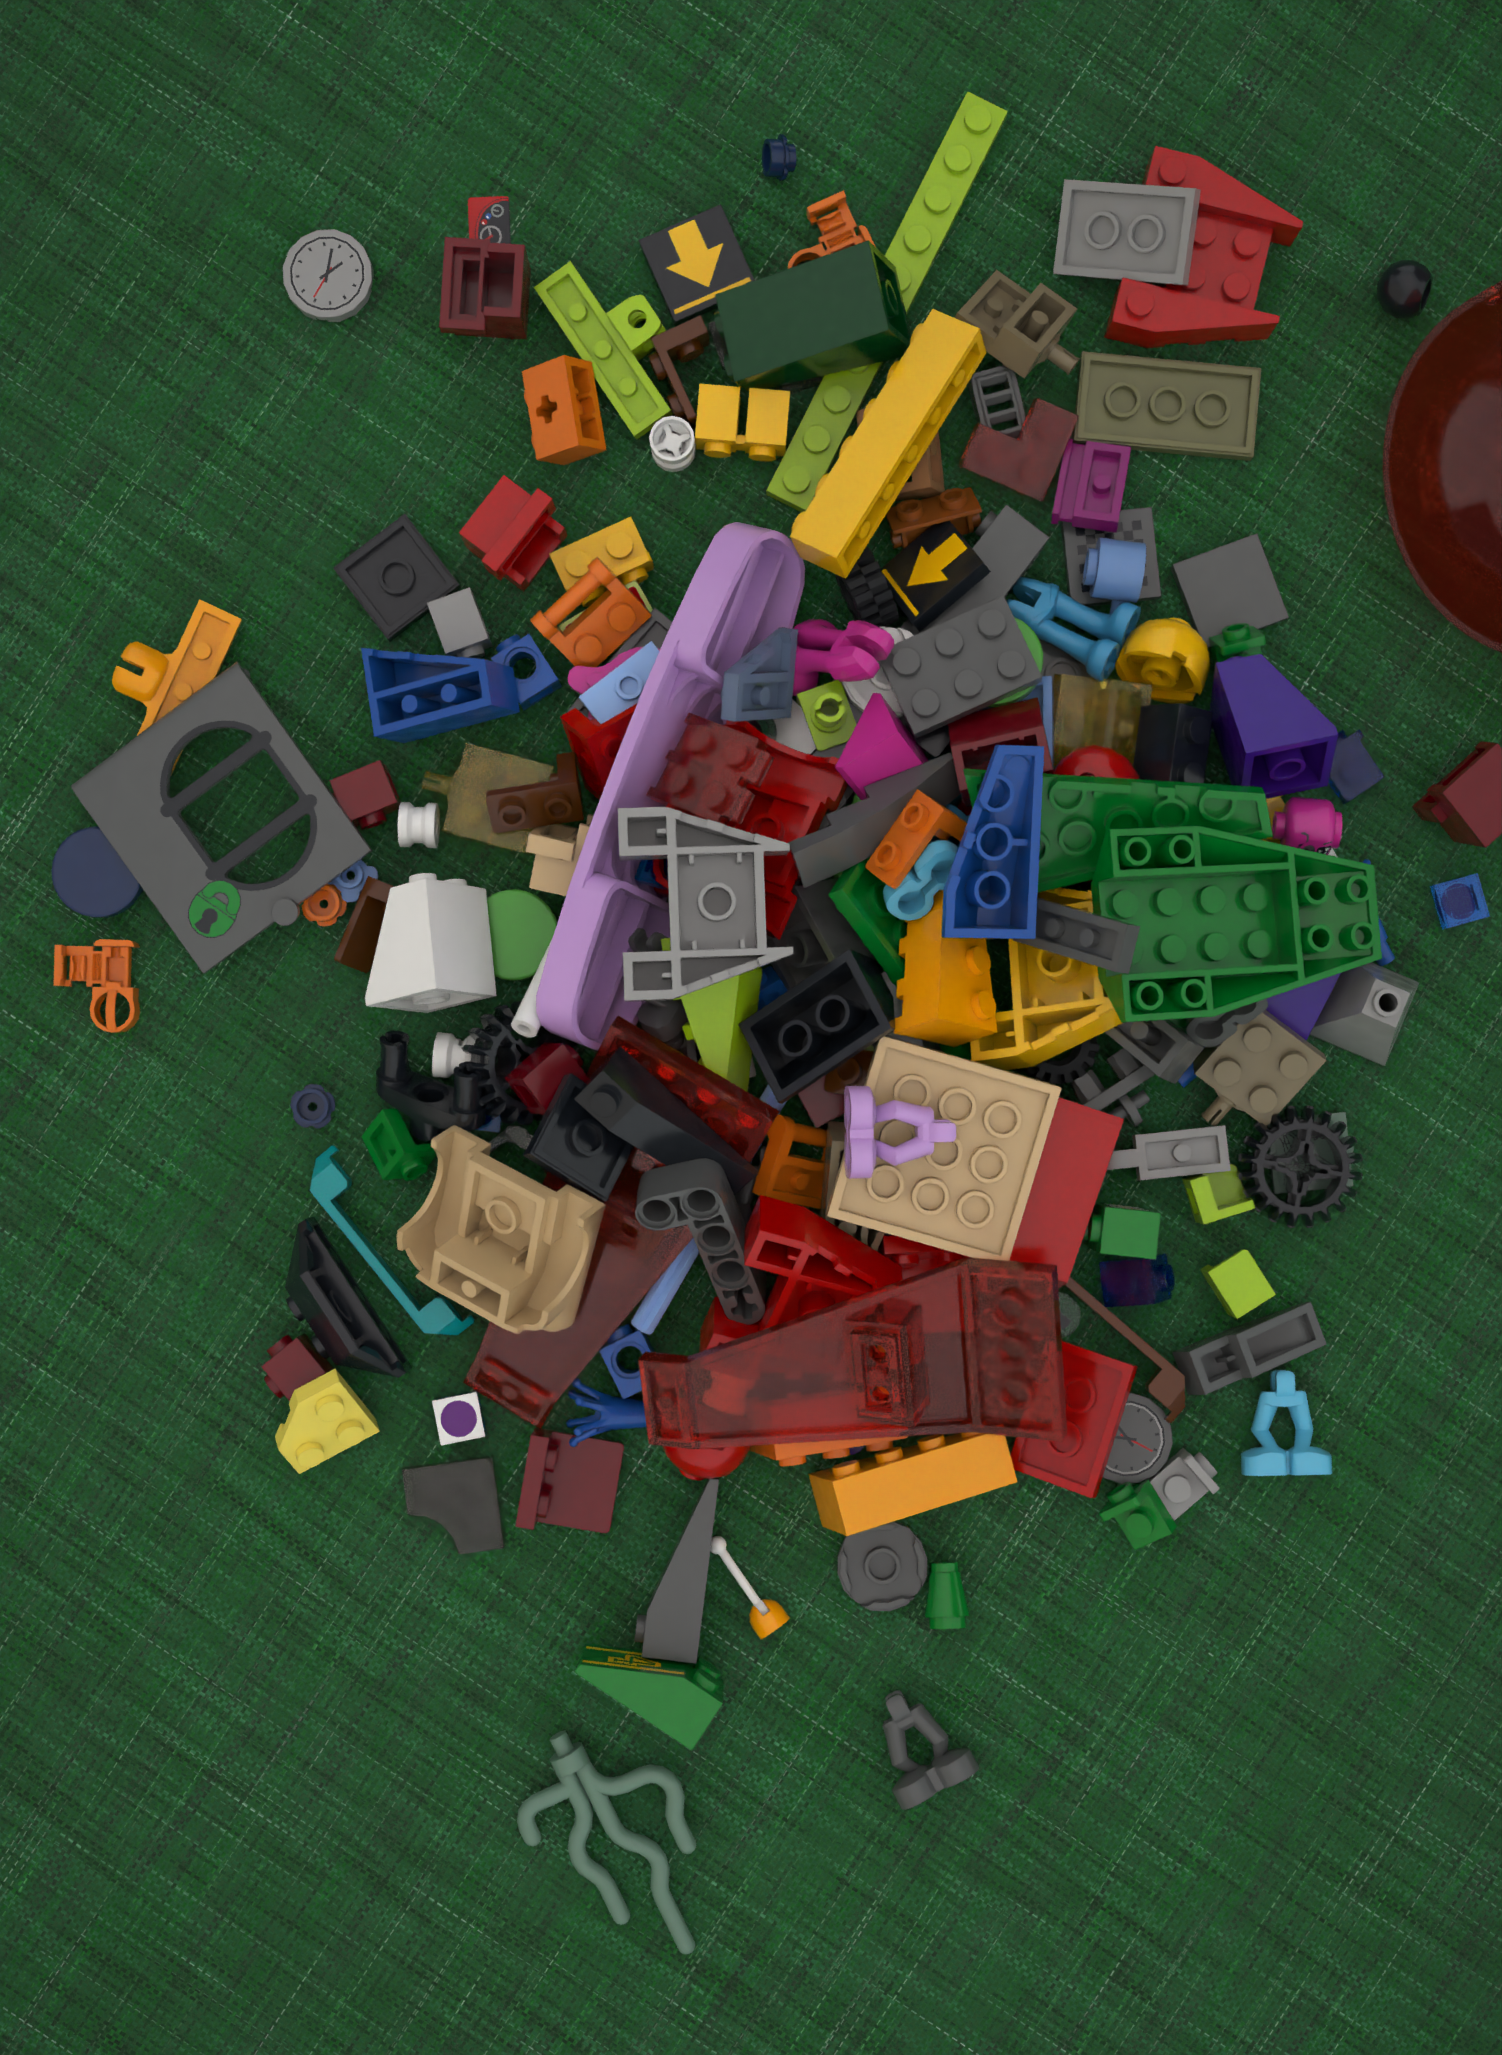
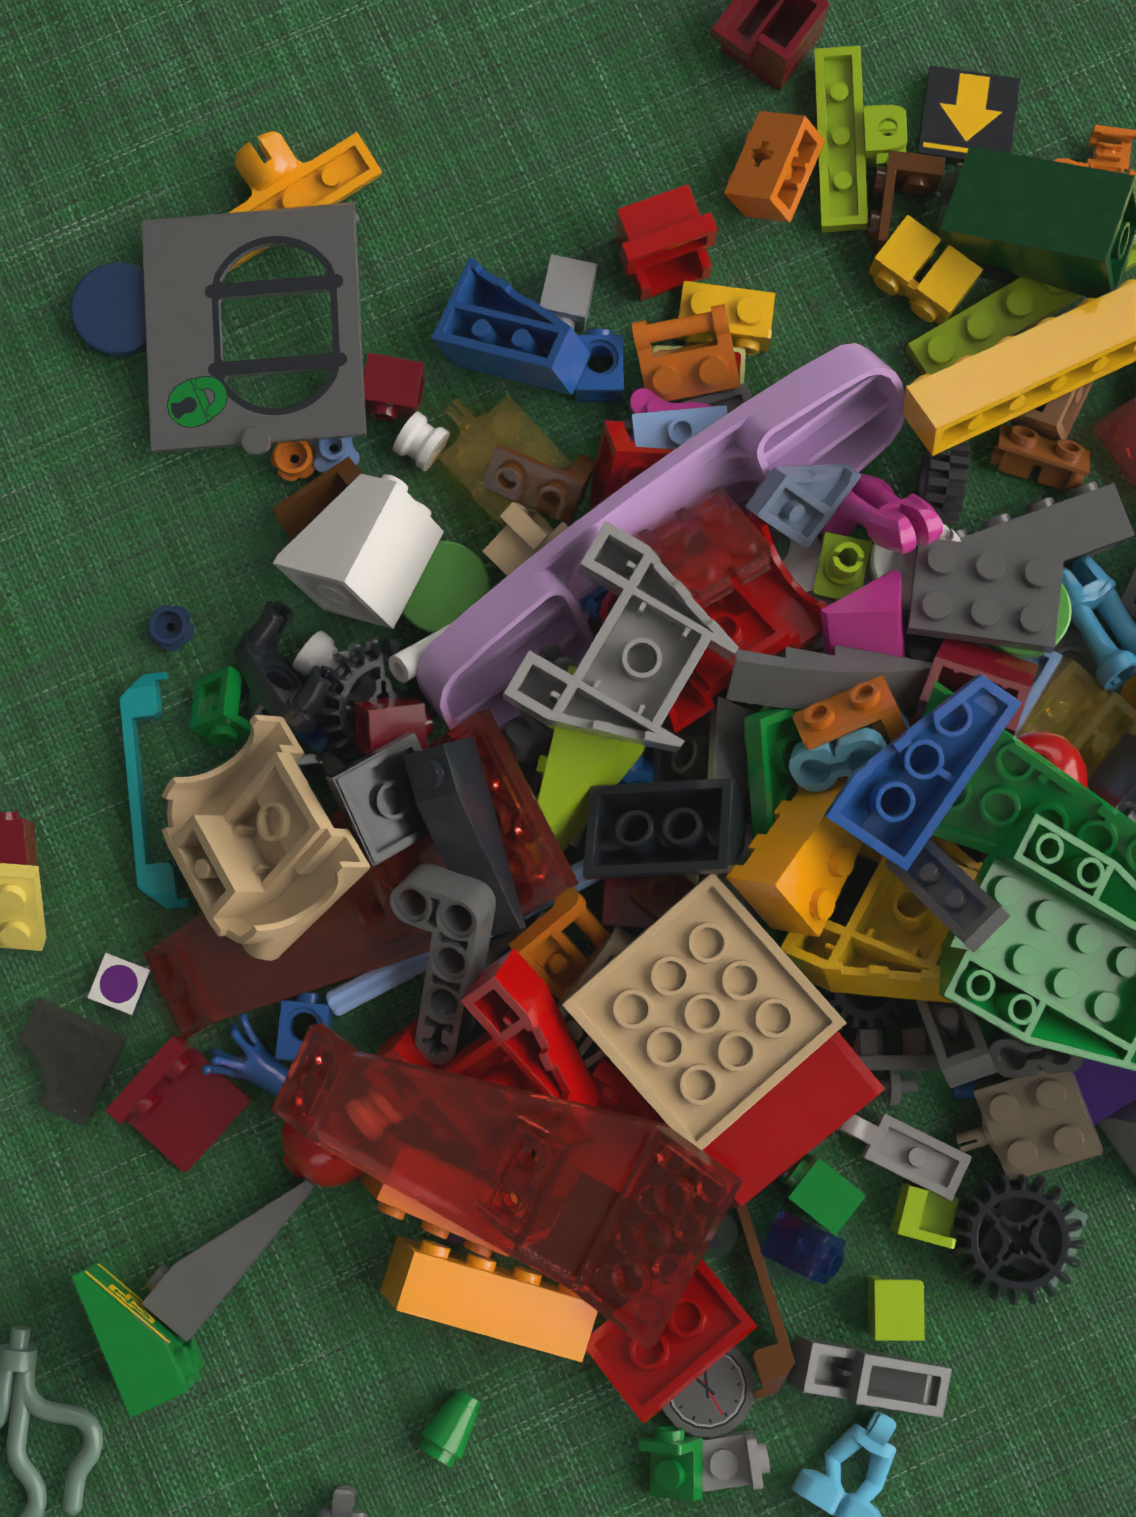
camera: 30 degrees right, 5 degrees down
(105, 967) = (71, 395): orange piece -> none
(337, 1308) = (76, 816): black wedge -> none
(396, 577) = (538, 219): black tile -> none
(669, 435) = (854, 243): white wheel -> none
(766, 1613) = (277, 1338): hinge -> none
(778, 157) = (1095, 70): dark blue plate -> none
(859, 1139) = (633, 962): lavender piece -> none
(882, 1566) = (411, 1362): dark grey tile -> none
(933, 573) = (1012, 502): black tile -> none

